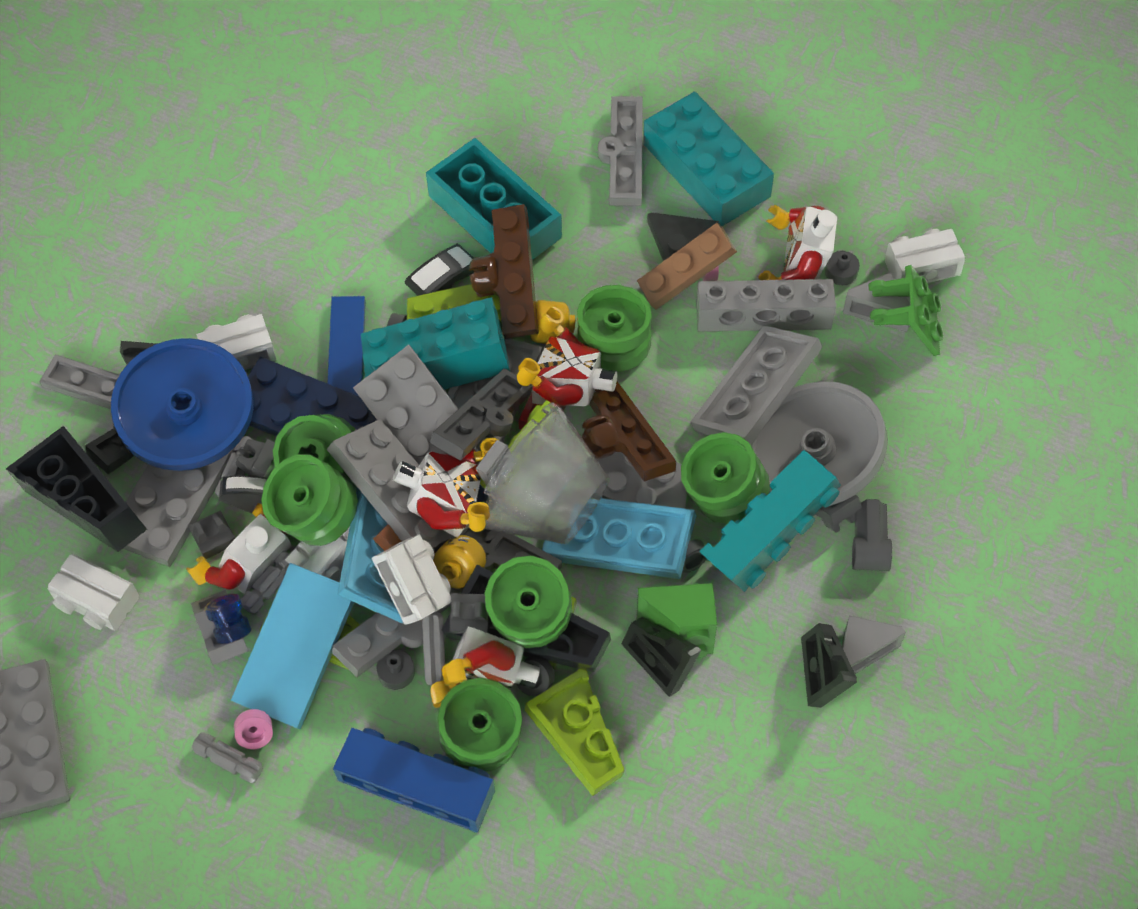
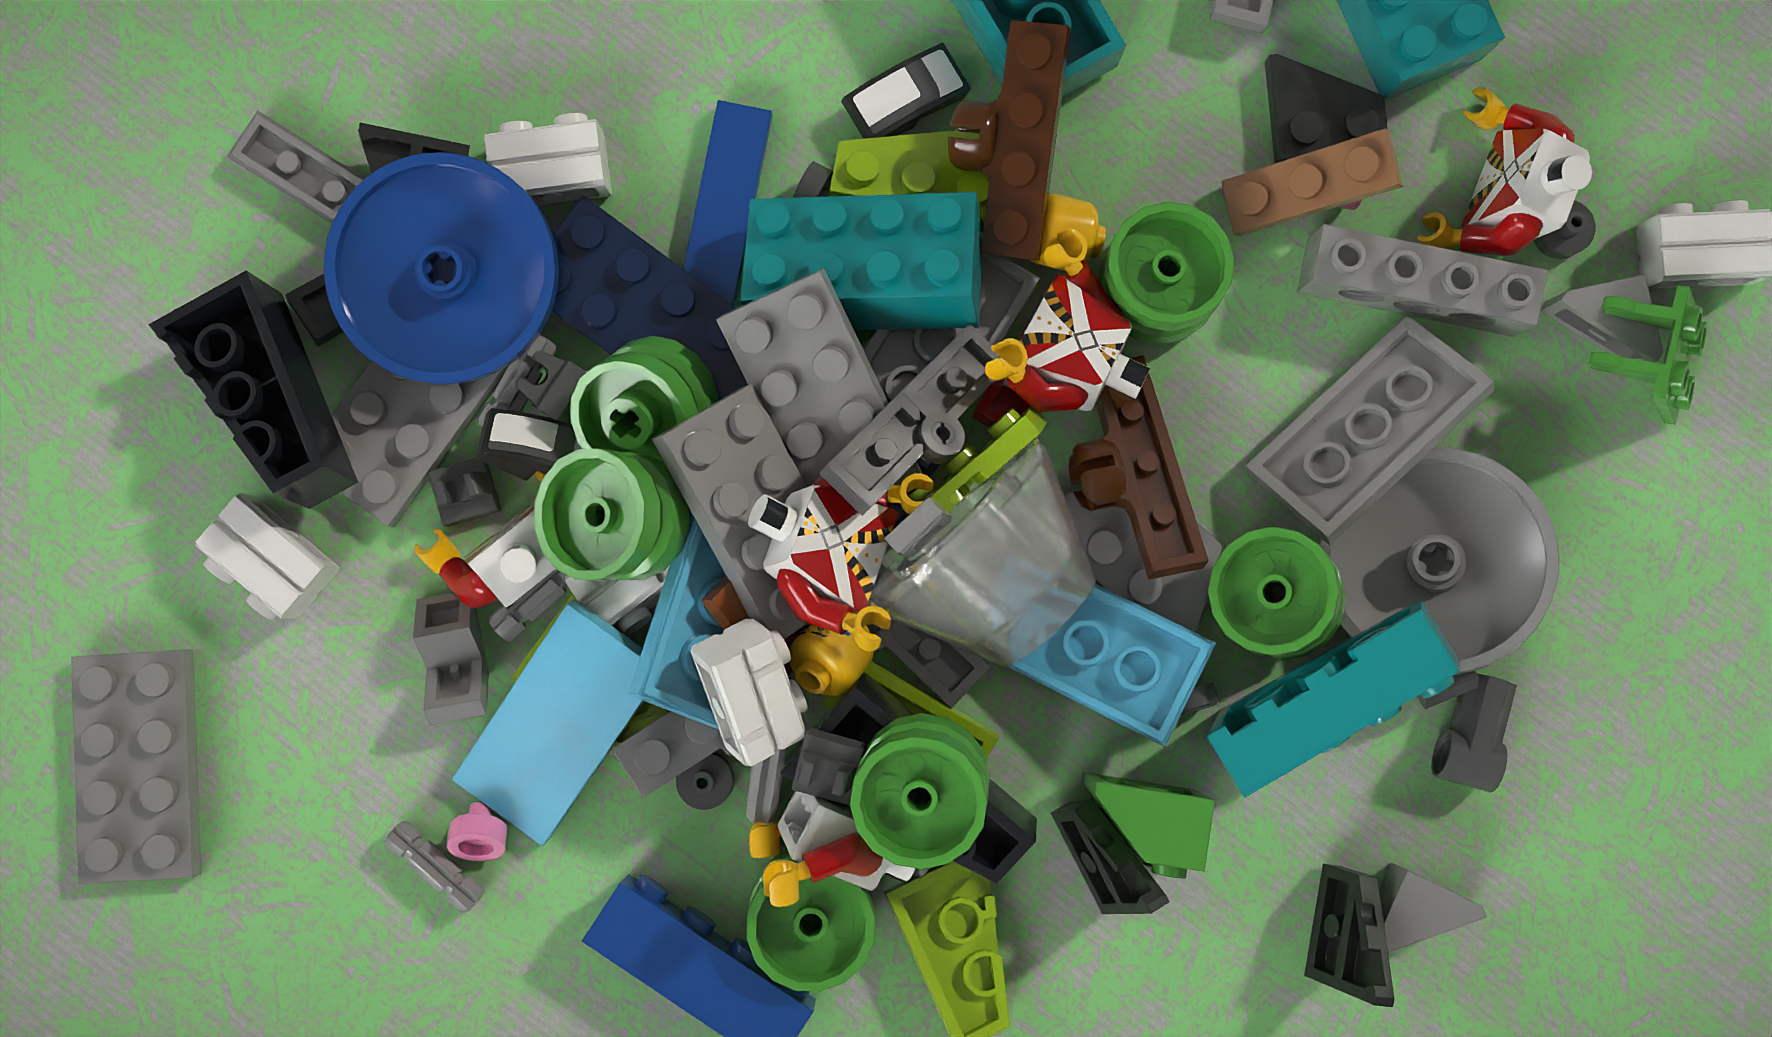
camera: 10 degrees right, 25 degrees up
(227, 618) = (461, 661): clear blue wheel -> none

